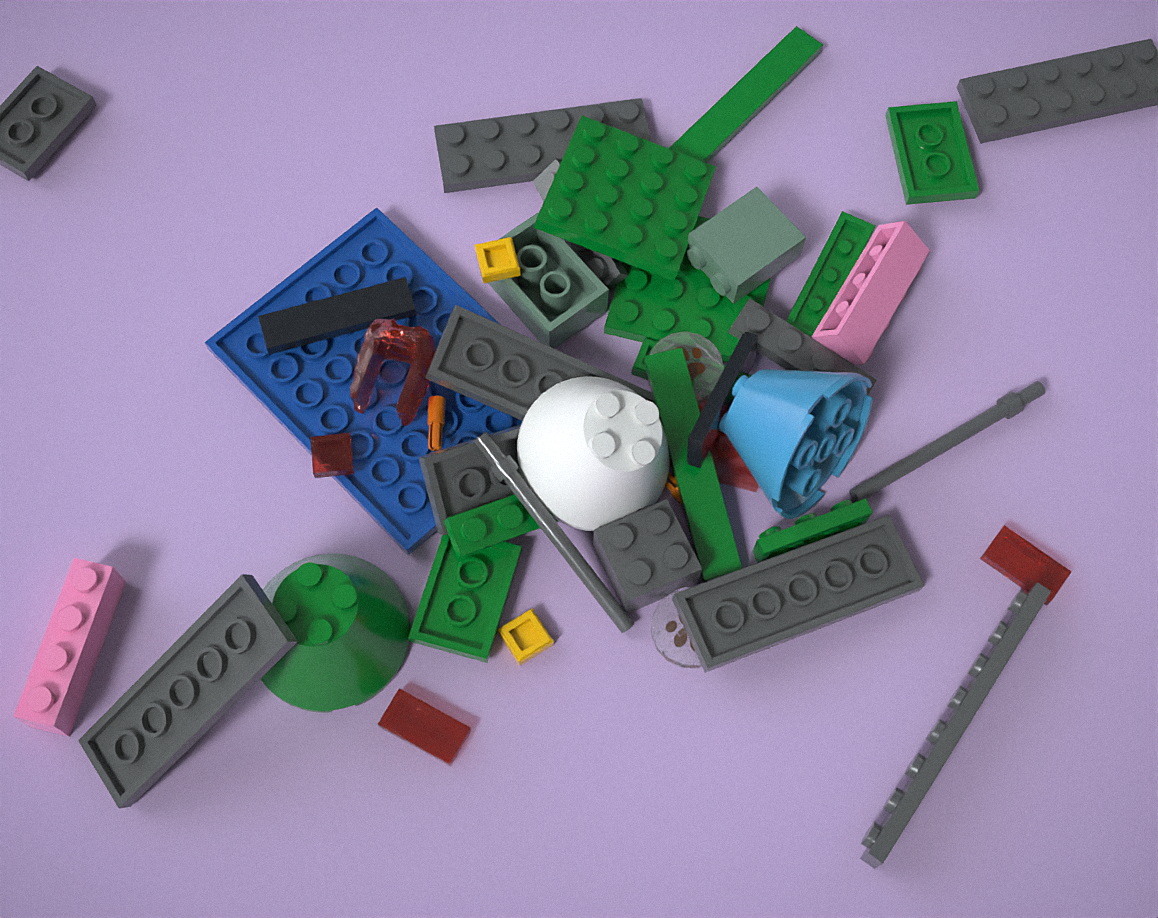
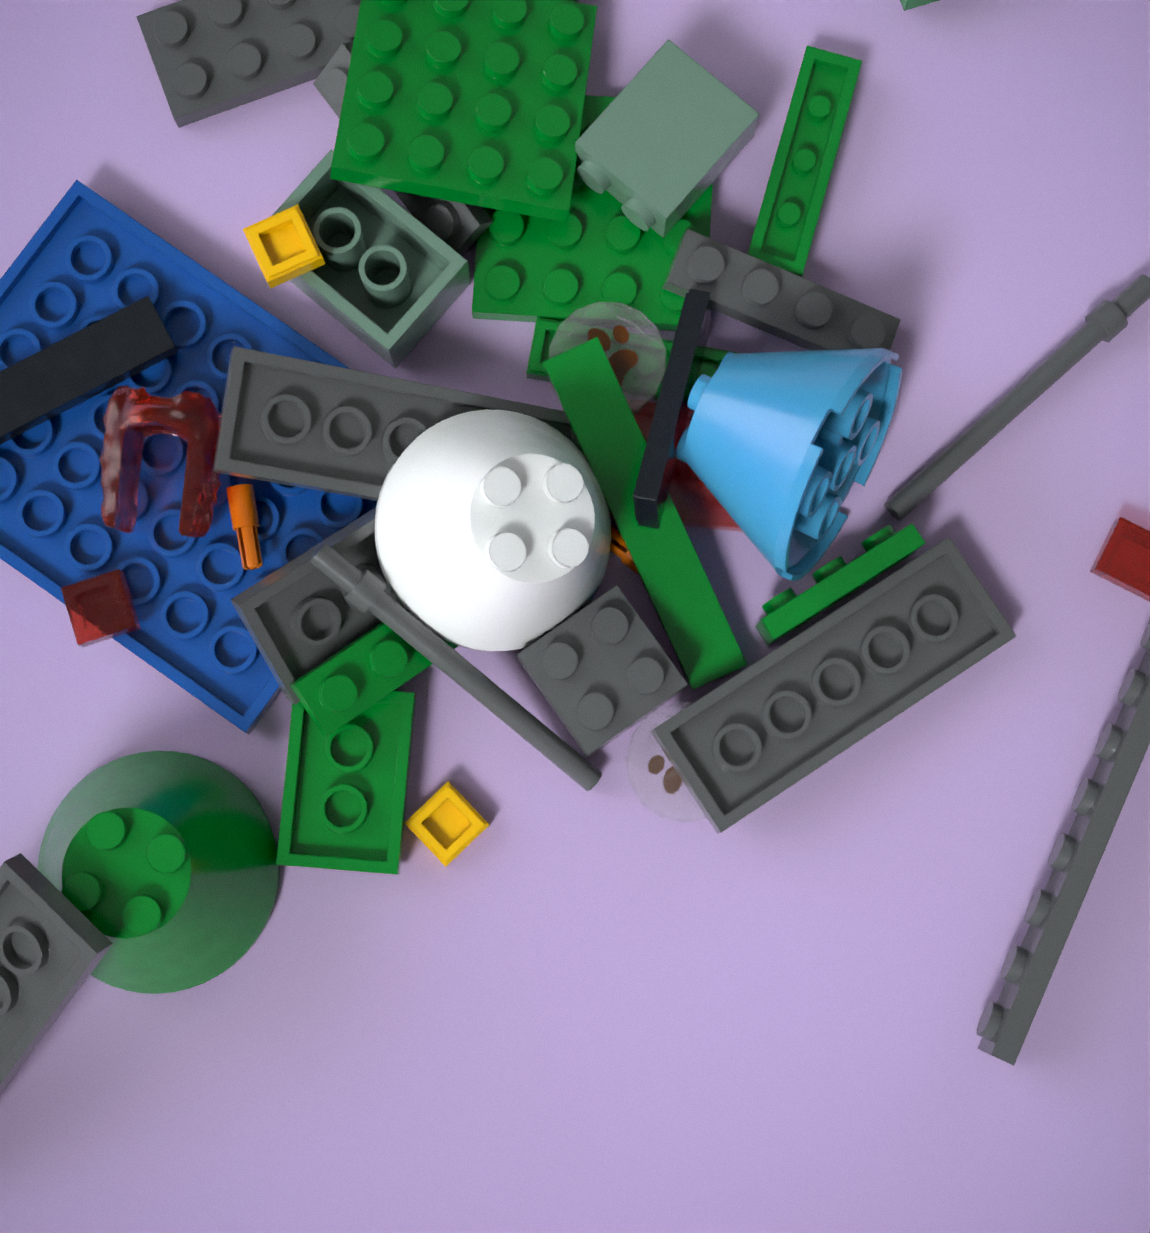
camera: 10 degrees left, 15 degrees up
(424, 727) = (328, 986): clear red tile -> none
(872, 292) = (874, 178): bright pink brick -> none

